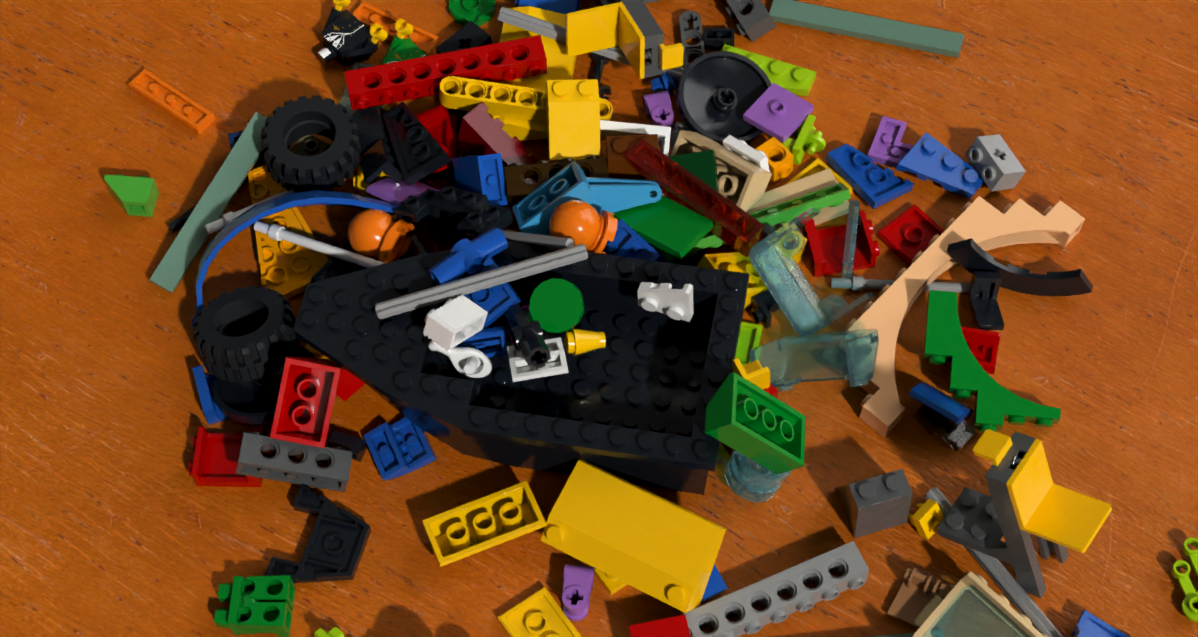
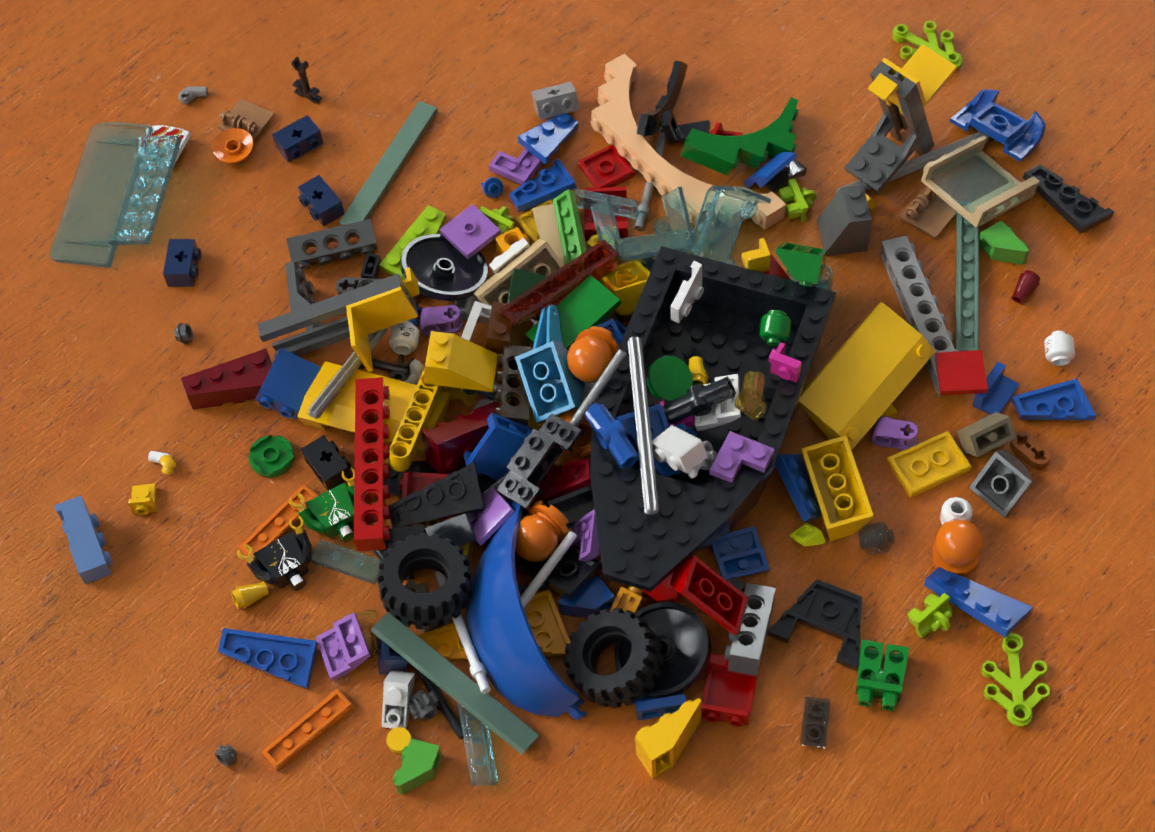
camera: 80 degrees left, 0 degrees up
(139, 42) = (226, 755): none -> dark grey plate
(149, 243) = (478, 749): none -> clear light blue tile
(159, 400) = (663, 742): none -> yellow slope
(163, 176) = (398, 739): none -> yellow tile
(194, 185) = (423, 705): none -> dark grey gear
(199, 549) = (815, 722): none -> clear smoke slope
(201, 162) = (396, 699): none -> white slope
(246, 55) = (277, 655): none -> blue wing
(260, 101) = (343, 647): none -> medium lavender slope
(307, 18) = (248, 594): none -> yellow cone
(427, 509) = (808, 535): none -> neon yellow slope
(429, 582) = (876, 538): none -> clear smoke head
(463, 383) = (738, 451): none -> medium lavender plate
(494, 477) = (798, 485): none -> blue wing
(530, 385) = (750, 399): none -> clear yellow piece
(588, 406) = (784, 366): none -> dark pink bracket
(628, 85) = (404, 338): none -> white head
(637, 398) = (775, 327): none -> green head
(854, 126) = (492, 187): none -> blue plate
(907, 447) = (800, 199): none -> lime hips

